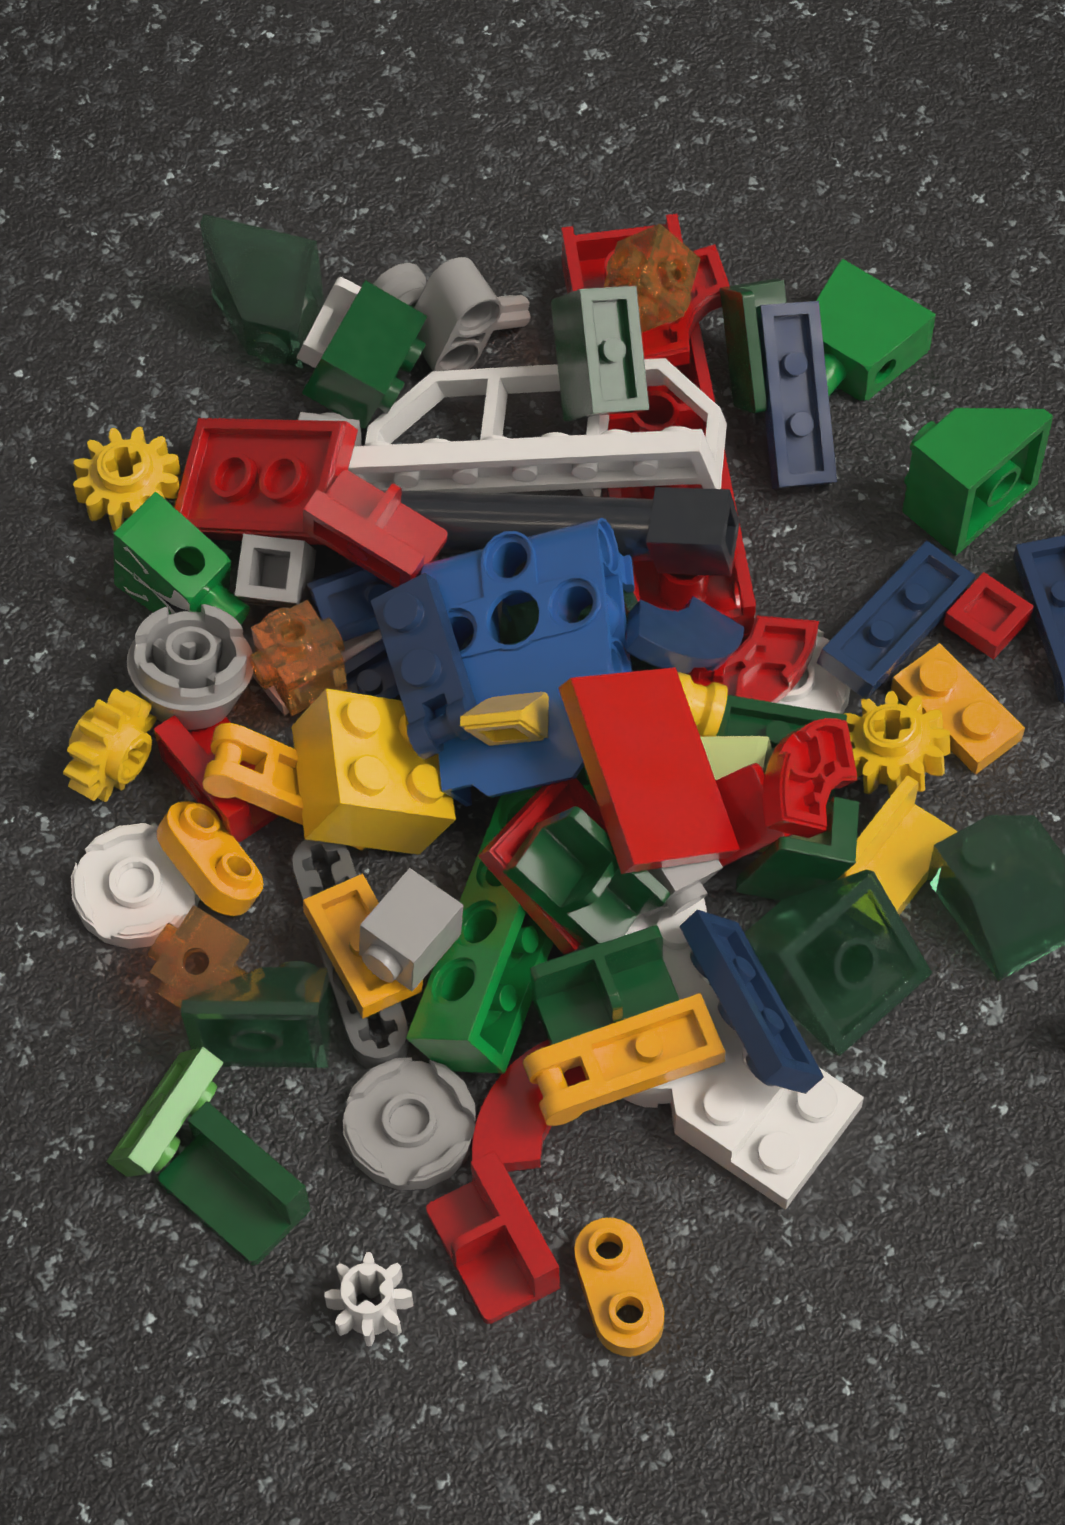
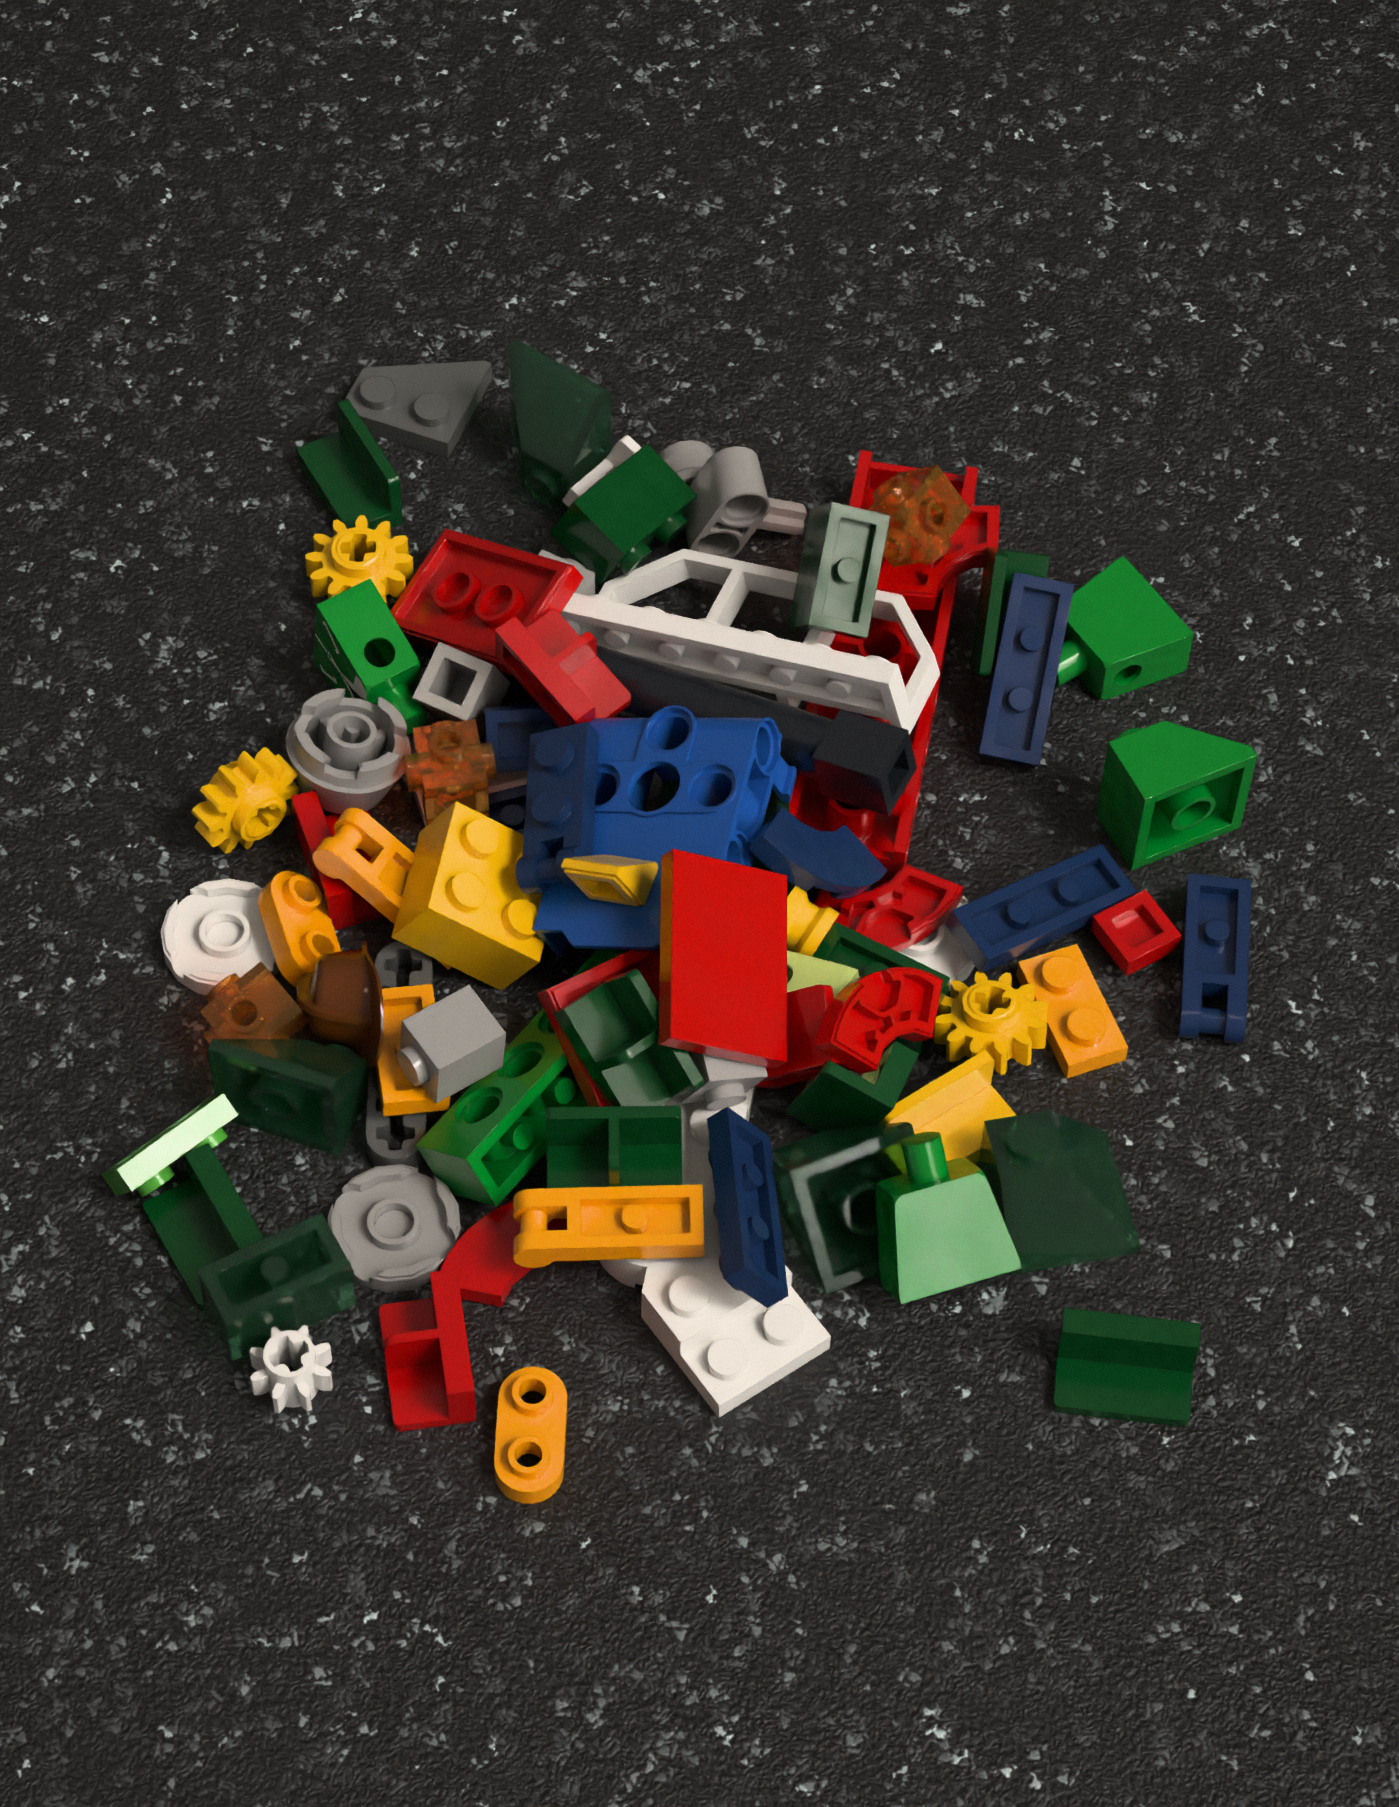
camera: 15 degrees right, 5 degrees down
(85, 389) = (352, 473): none -> dark green panel
(117, 302) = (420, 402): none -> dark grey wing
(288, 917) = (345, 1001): none -> reddish brown piece
(326, 1222) = (278, 1284): none -> clear green brick
(928, 959) = (938, 1224): none -> torso

